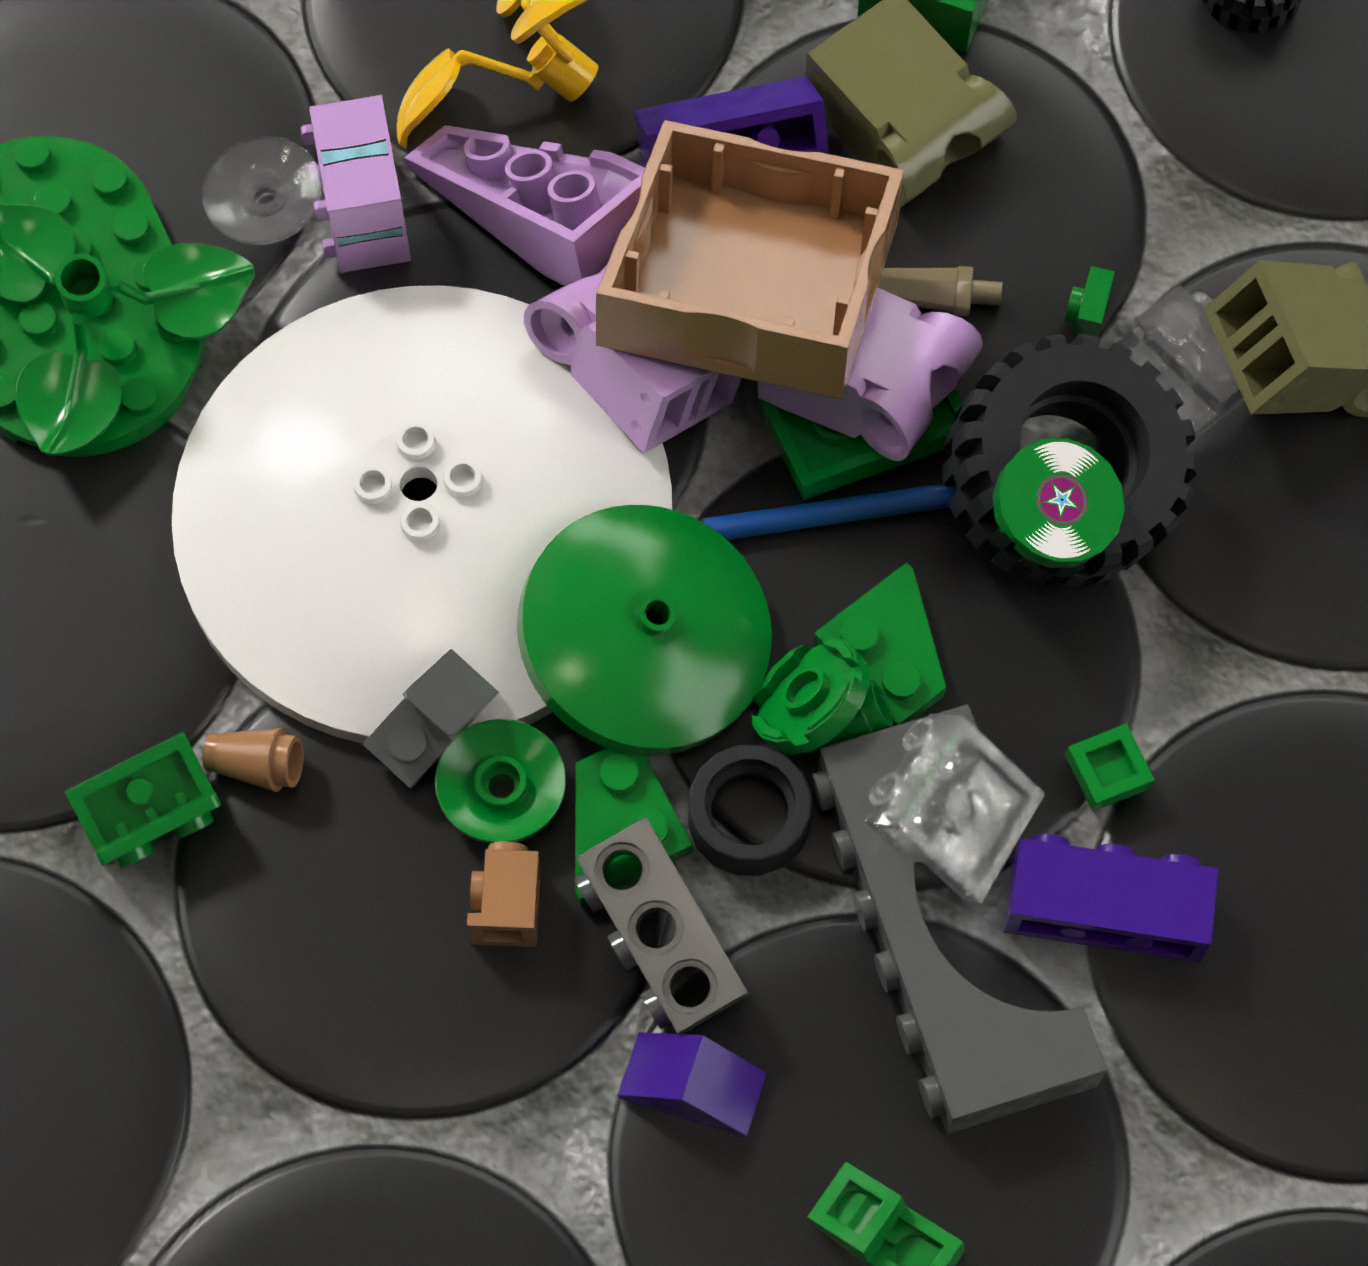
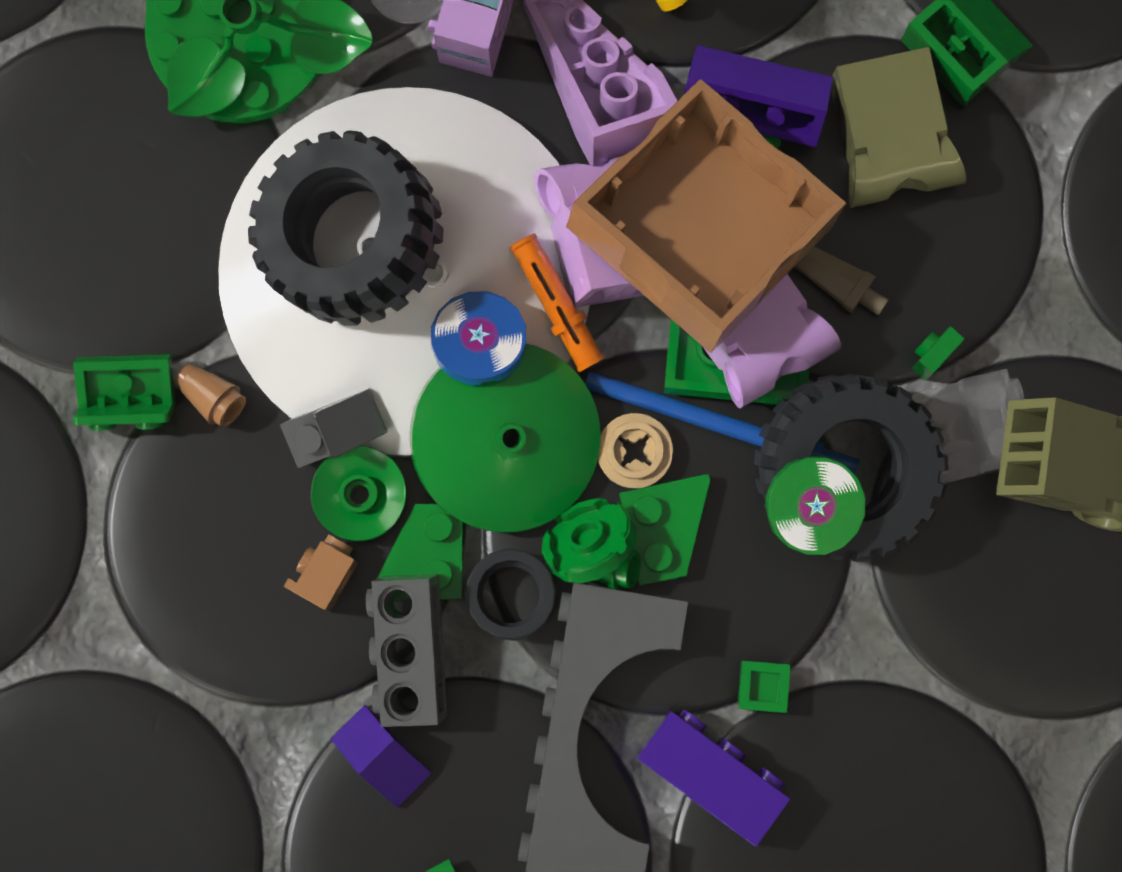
camera: 30 degrees right, 15 degrees up
(284, 410) = (302, 193): none -> black tyre
(556, 519) = (478, 337): none -> blue tile
(626, 448) = (528, 252): none -> orange pin
(787, 559) = (633, 428): none -> tan gear
(954, 804) = (636, 671): clear plate -> none

